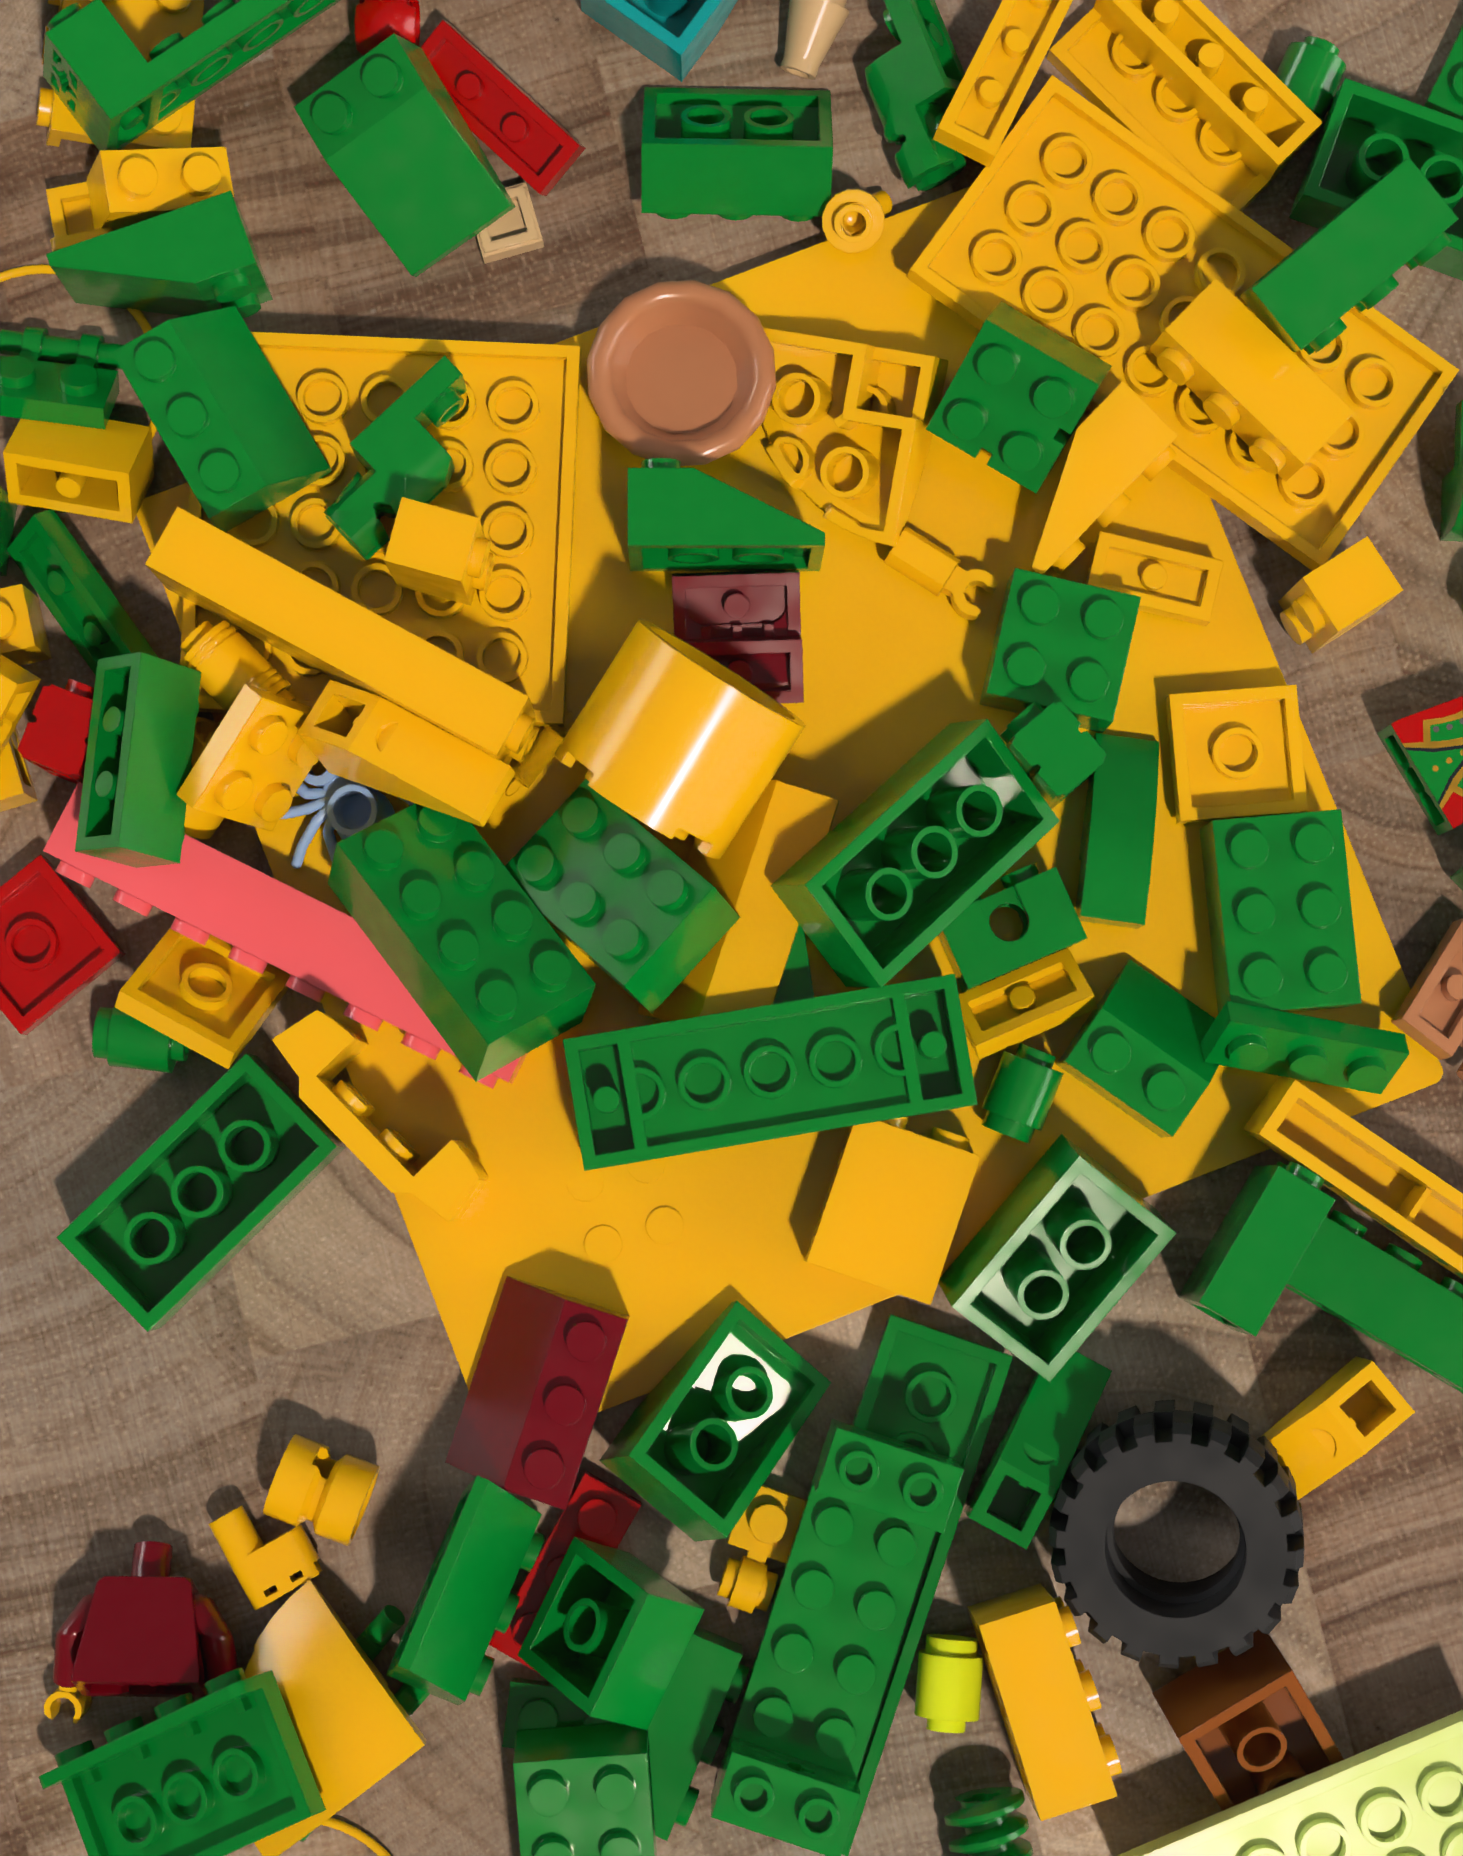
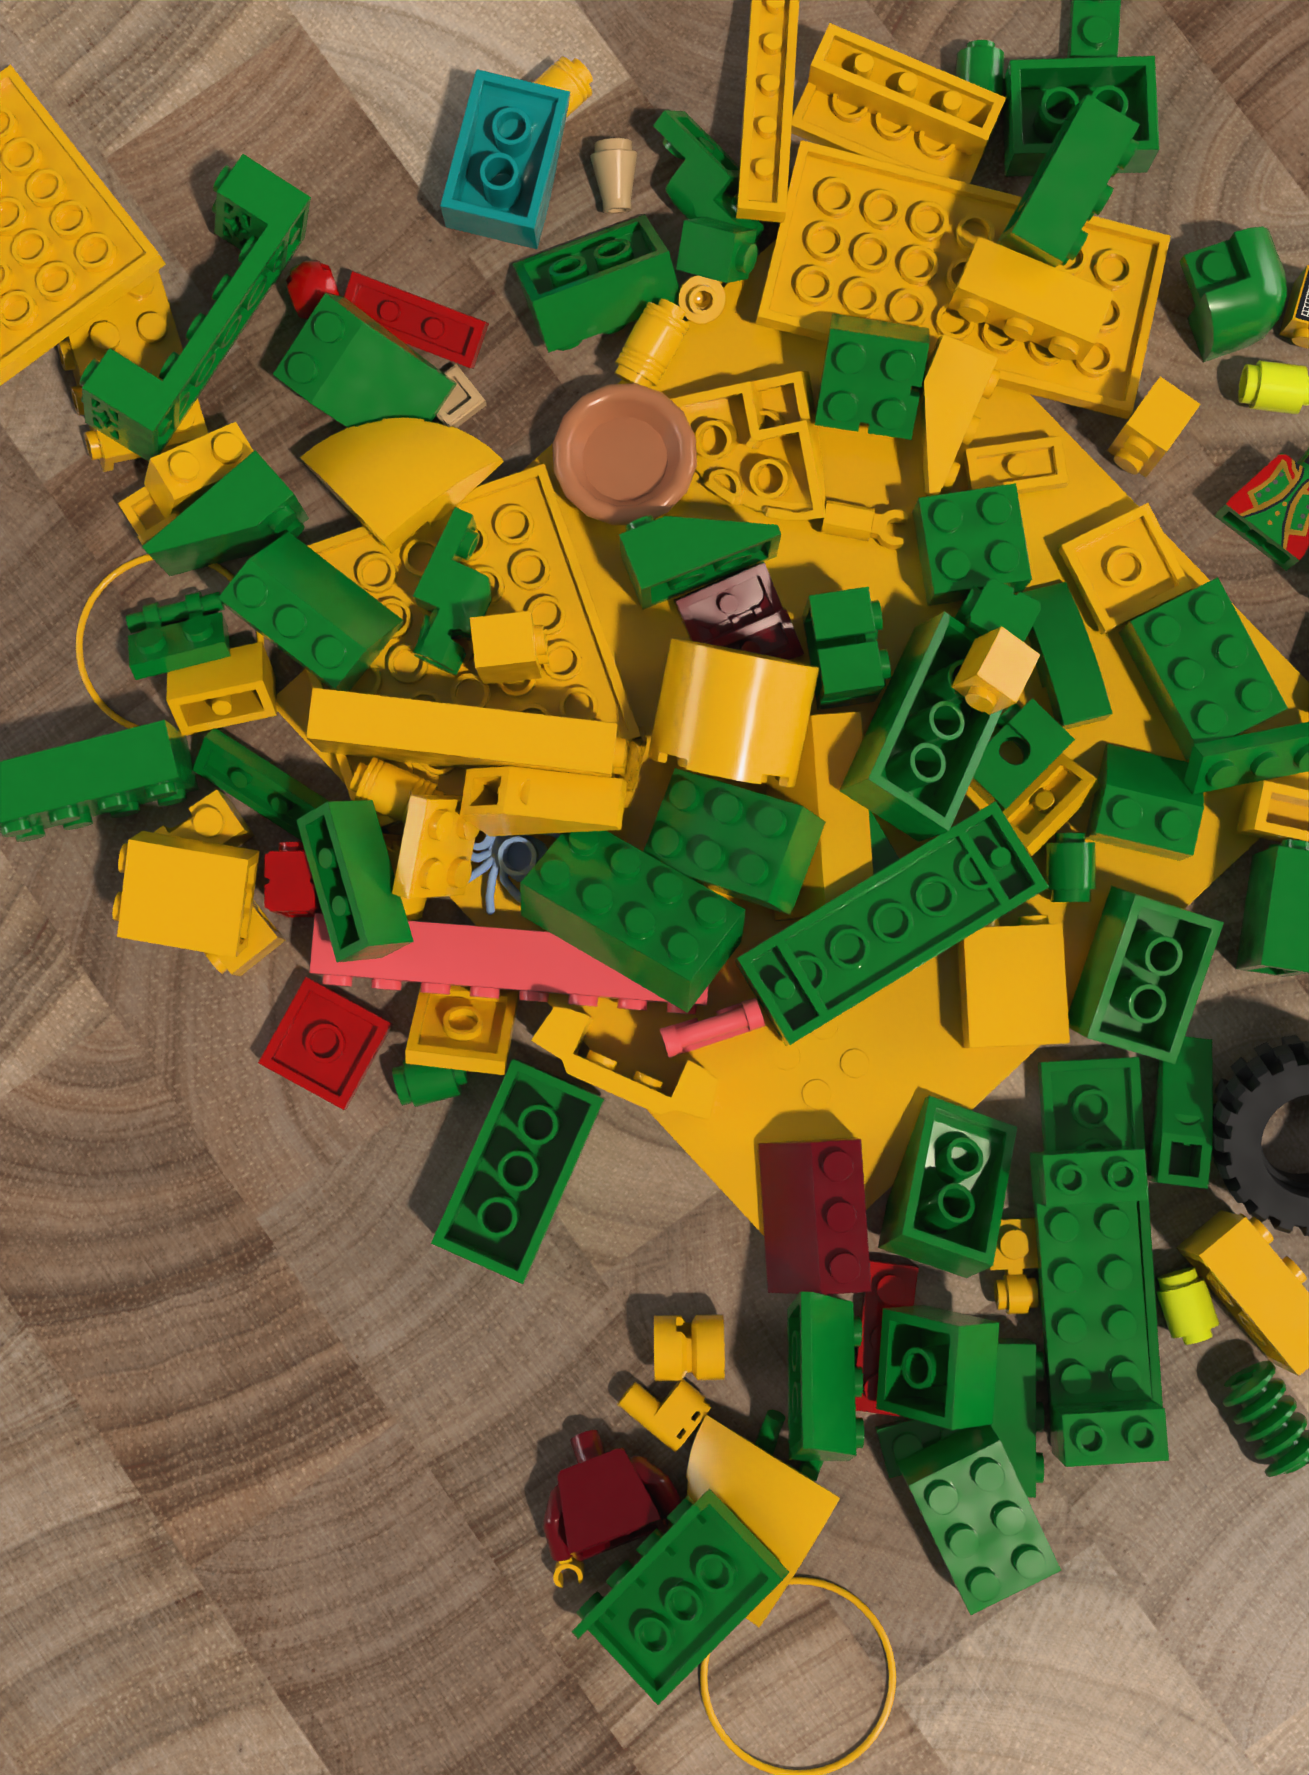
camera: 10 degrees left, 0 degrees up
(400, 288) = (400, 473): none -> yellow brick
(484, 1113) = (726, 1024): none -> coral plate
(769, 252) = (652, 344): none -> yellow head
(850, 715) = (843, 644): none -> green piece
(893, 168) = (717, 249): none -> green brick
(1017, 816) = (995, 671): none -> yellow brick

